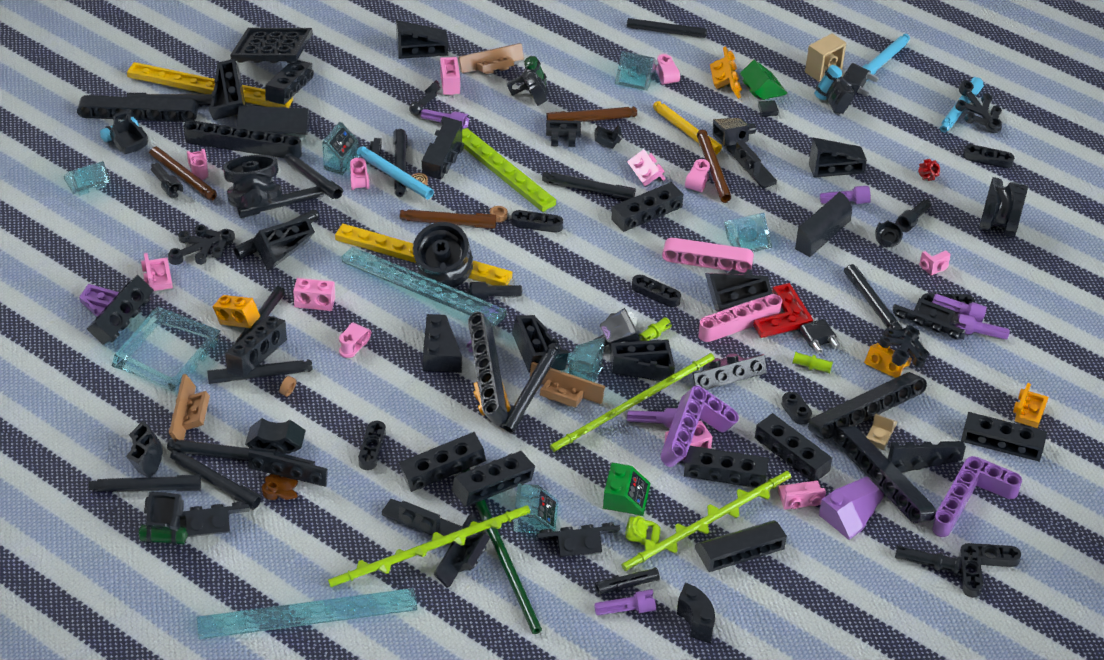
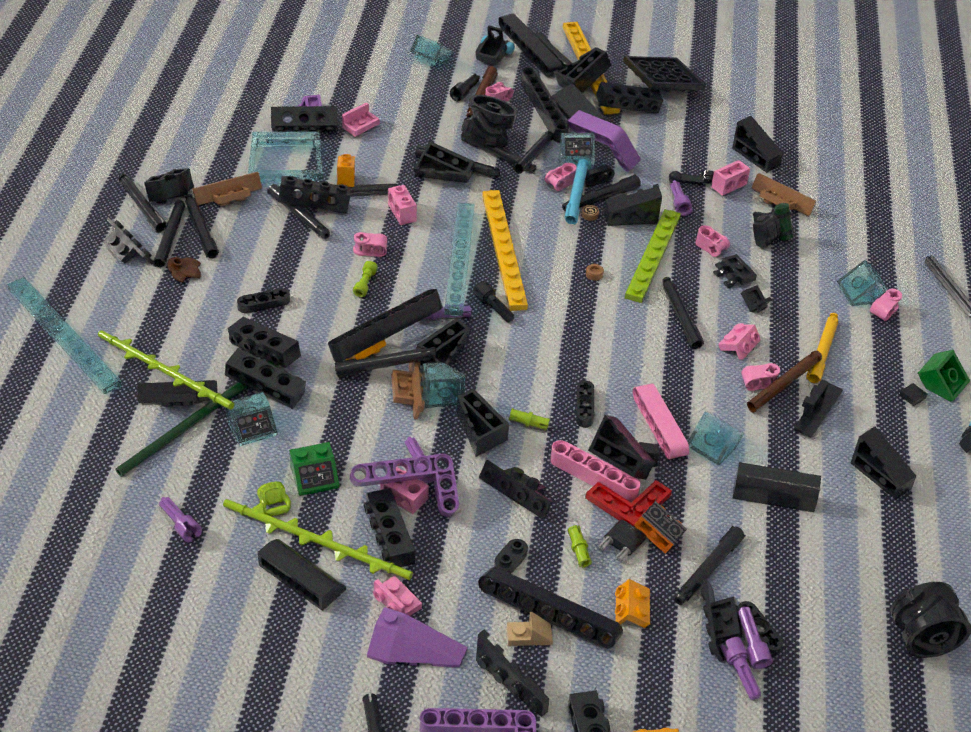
camera: 60 degrees right, 0 degrees up
(163, 519) = (98, 216): black piece -> none
(222, 237) = (390, 125): black plant -> none
(282, 437) = (230, 243): black brick -> none
(287, 386) = (292, 230): medium nougat tile -> none
(288, 467) = (204, 263): black bracket -> none
(326, 119) = (609, 135): none -> medium lavender beam
(408, 370) = (369, 269): none -> lime piece
(418, 518) = (197, 354): black bracket -> none
(440, 346) = (398, 289): black wedge -> none
(443, 254) = (494, 249): black piece -> none
(479, 220) = (573, 262): reddish brown piece -> none
(515, 127) = (710, 241): none -> bright pink piece
(554, 222) = (605, 304): black beam -> none
(569, 438) = (495, 457): lime plant -> none
(578, 541) = (234, 461): black bracket -> none
(593, 115) = (776, 281): reddish brown piece -> none
(619, 328) = (506, 393): black torso -> none
(619, 583) = (191, 496): black pin -> none
(647, 206) = (687, 357): black brick -> none
(697, 611) = (193, 568): black brick -> none
(724, 72) = (924, 347): light orange bracket -> none
(731, 130) = (845, 376): black torso -> none
(793, 447) = (449, 569): black brick -> none
(826, 305) = (660, 527): none -> brick
(858, 195) = (849, 501): medium lavender piece -> none
(884, 474) = (459, 651): black beam -> none
(888, 234) = (811, 542): black hair -> none
(900, 356) = (656, 606): black plant -> none
(909, 218) = (851, 554): black piece -> none
(929, 169) = (941, 538): red gear -> none
(934, 263) = (806, 597): bright pink bracket -> none

